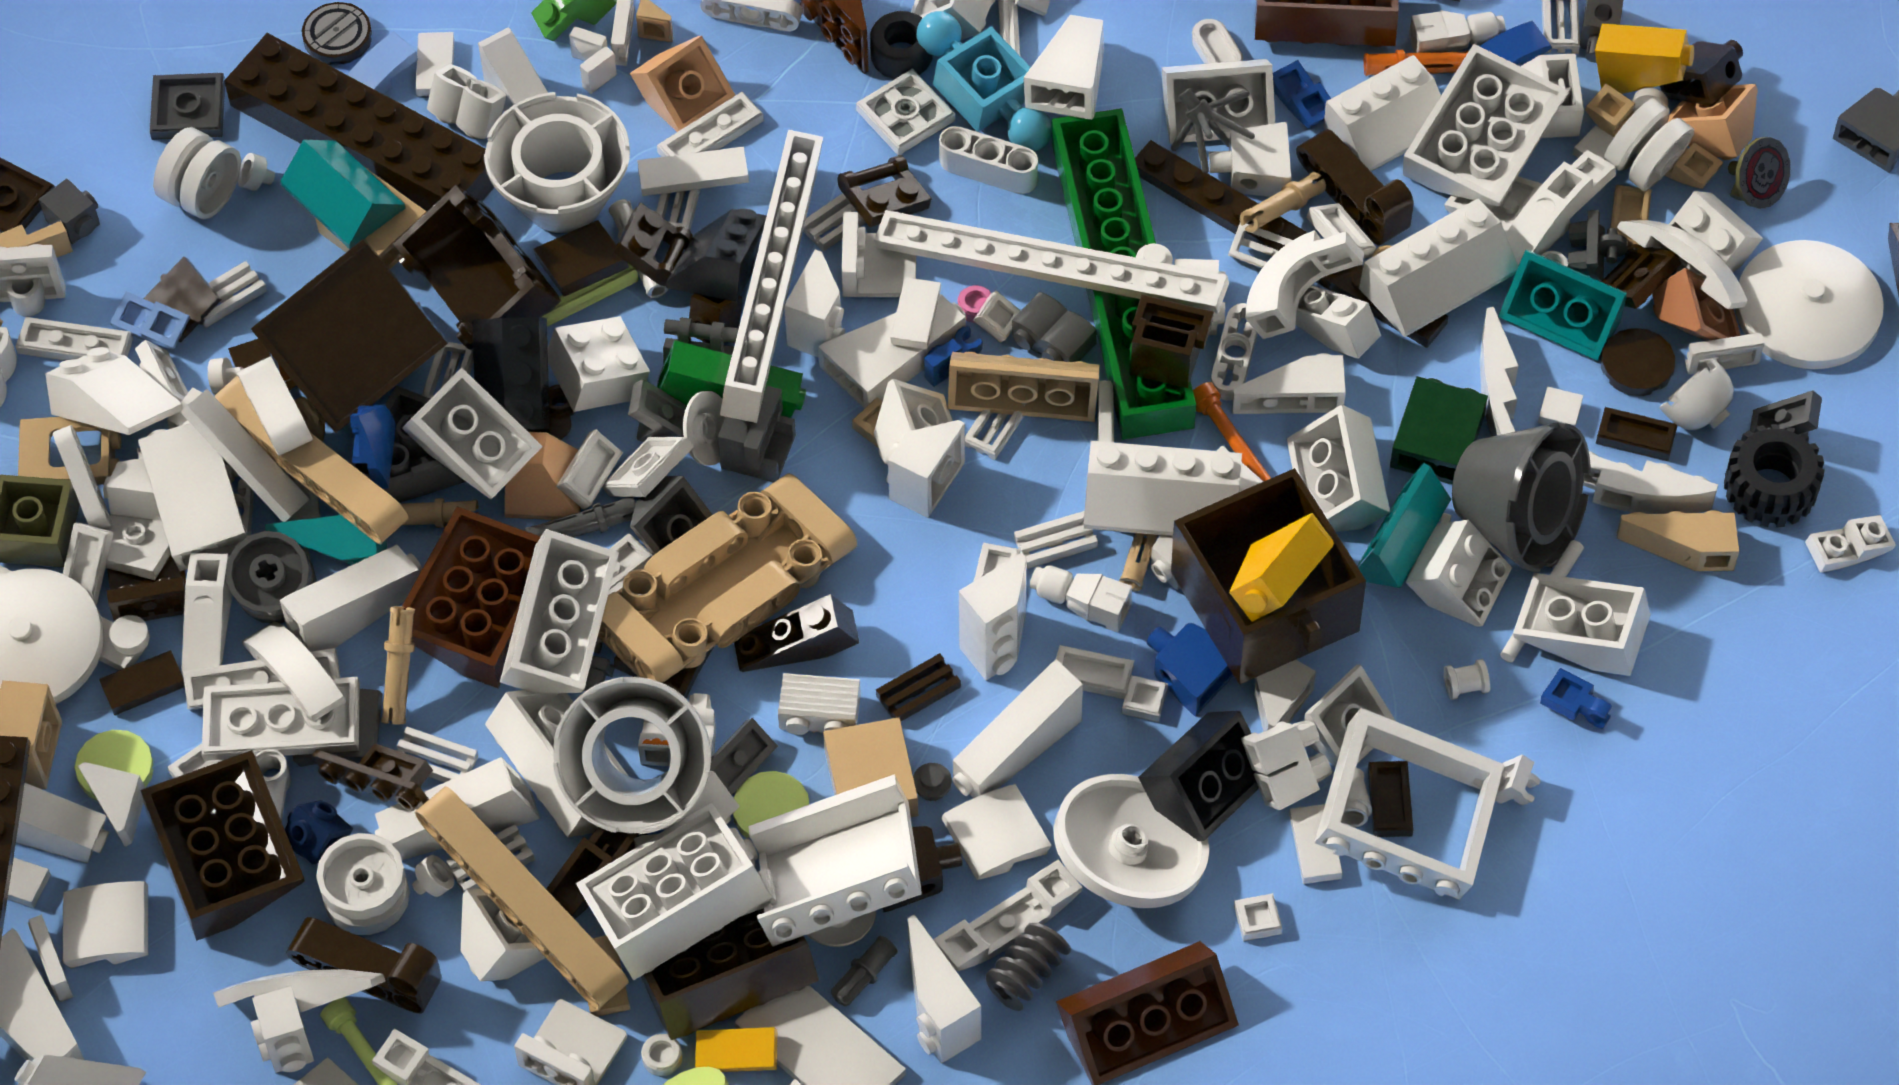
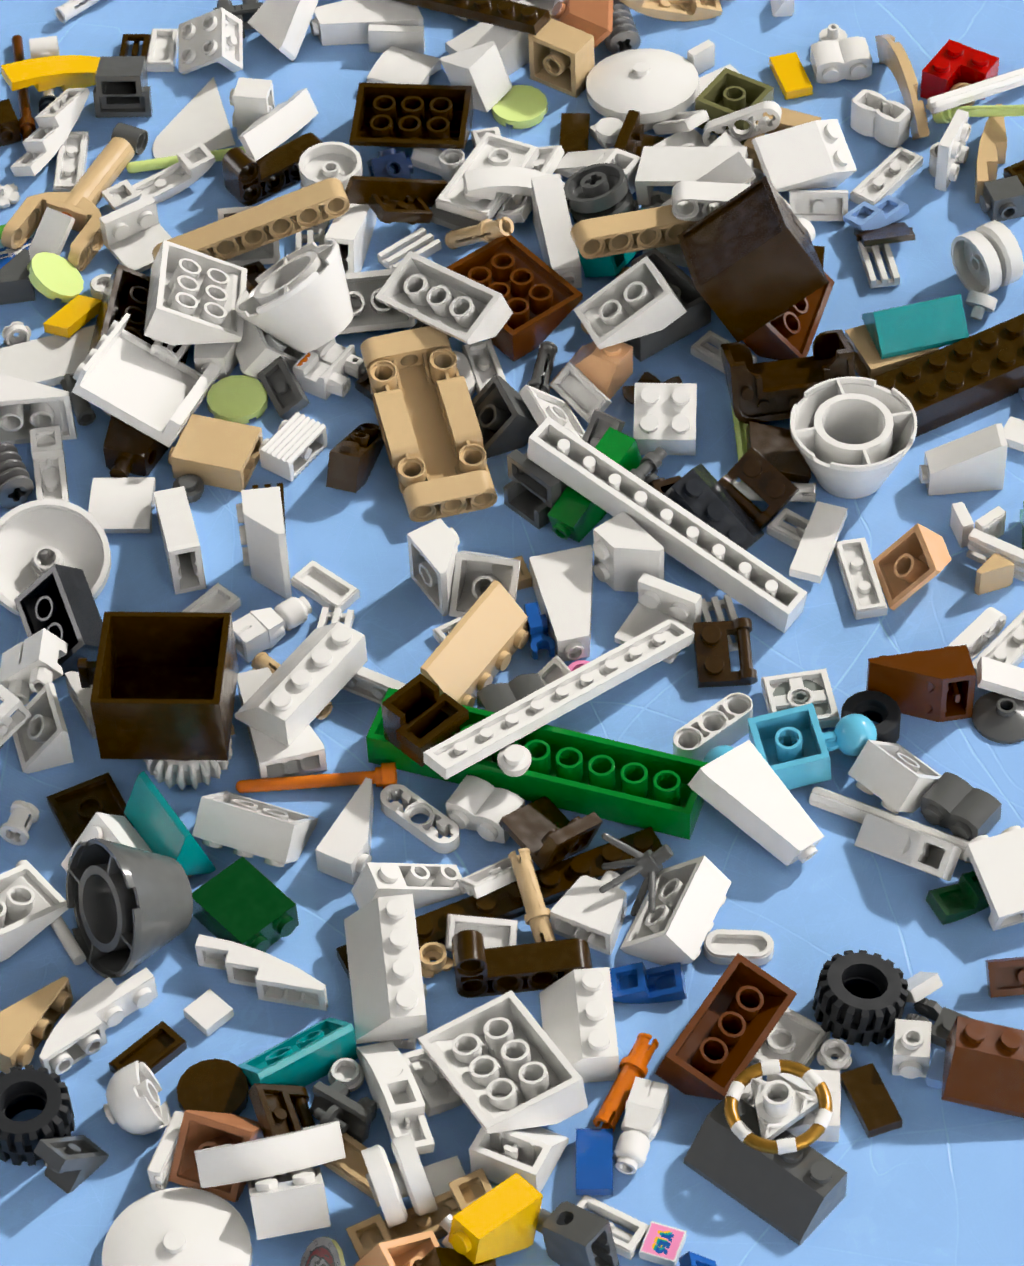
camera: 120 degrees right, 10 degrees down
(374, 441) = (660, 247): blue slope -> none
(465, 100) = (967, 423): white brick -> none
(513, 366) = (674, 356): black slope -> none
(915, 313) = (577, 606): white tile -> none
(1200, 217) = (549, 832): none -> dark brown bracket
(1279, 566) = (143, 655): yellow slope -> none
(1289, 274) = (442, 851): white arch -> none
(1406, 634) = (78, 804): none -> dark brown tile

